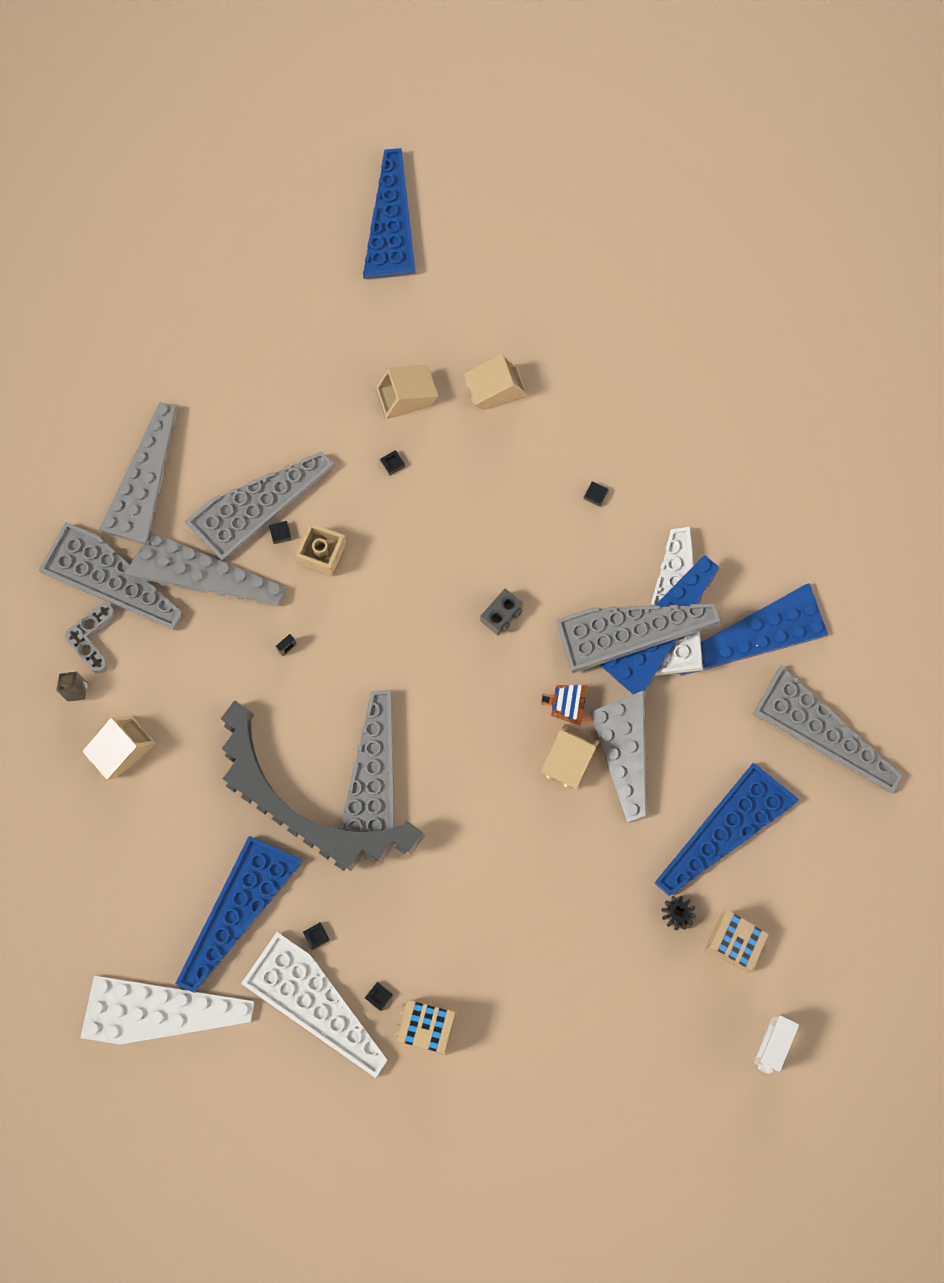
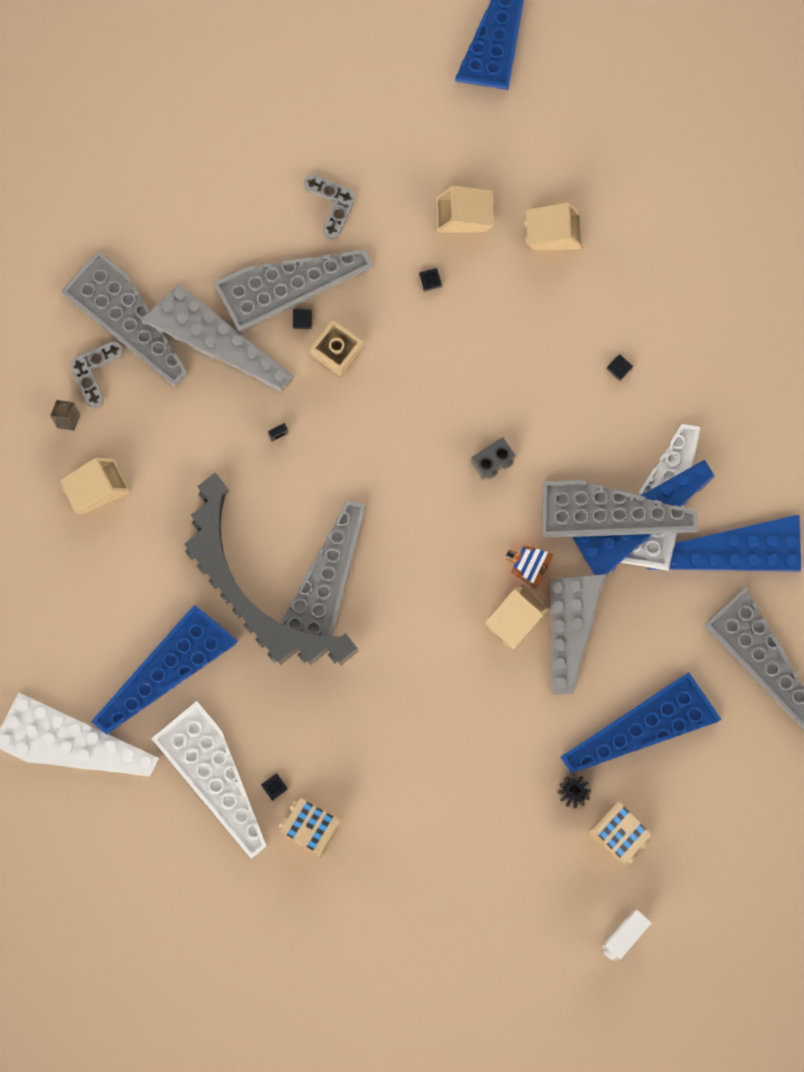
camera: 10 degrees right, 5 degrees up
(136, 498) = (172, 245): light grey wing -> none
(285, 416) = (339, 204): none -> light grey beam
(316, 936) = (232, 715): black tile -> none

